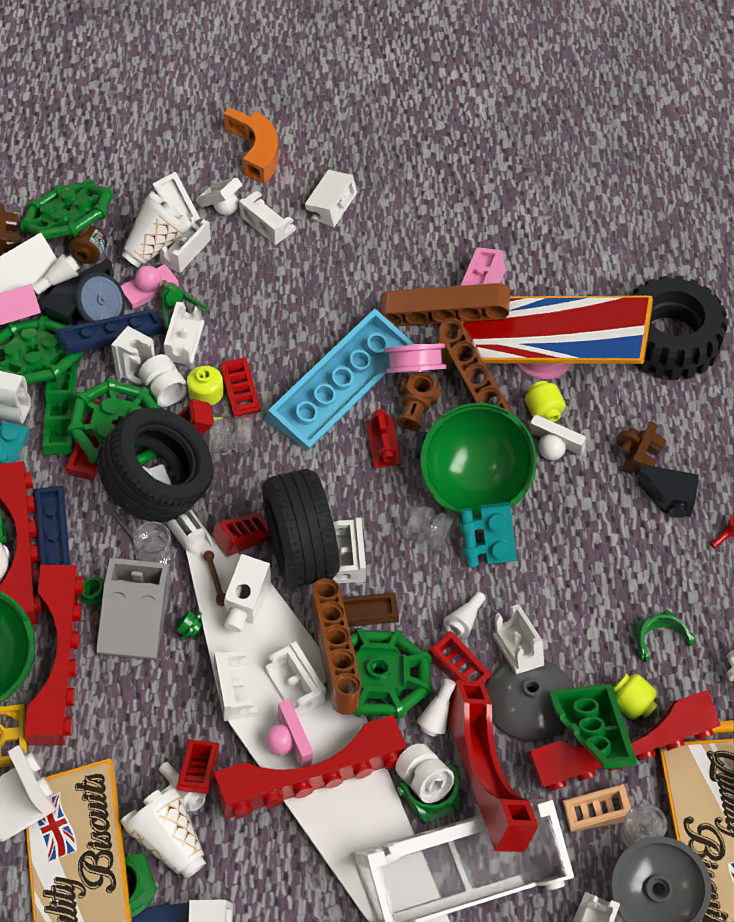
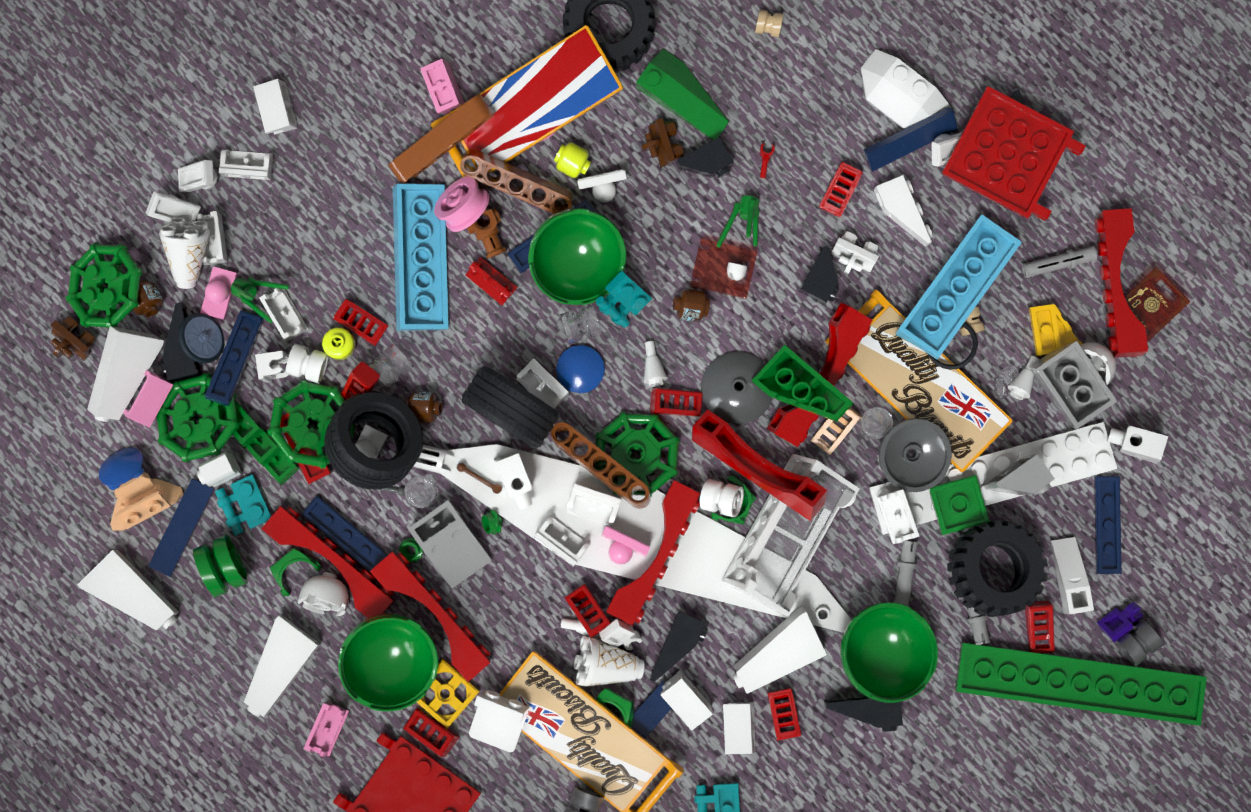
camera: 40 degrees left, 30 degrees up
(63, 269) = (158, 343): white cone -> none
(207, 811) = (620, 633): none -> white plate
(226, 487) = (425, 406): none -> reddish brown head
(232, 544) = (464, 447): red slope -> none
(254, 876) = (681, 639): none -> black slope
(264, 155) = (193, 110): orange arch -> none
(371, 609) = (590, 412): reddish brown tile -> none
(395, 568) = (580, 369): none -> blue dish
(435, 716) = (694, 455): white cone -> none
(519, 641) = (703, 360): white hinge -> none
(549, 591) = (691, 305): none -> reddish brown head
(605, 586) = (712, 268): none -> clear red container
(619, 594) = (736, 271): none -> white hinge
(635, 696) = (800, 335): neon yellow head -> none
(664, 619) = (766, 277): green helmet -> none
(673, 556) = (748, 211): none -> green plant
(691, 424) = (677, 90): none -> green wedge
(696, 663) = (821, 279): none -> black slope

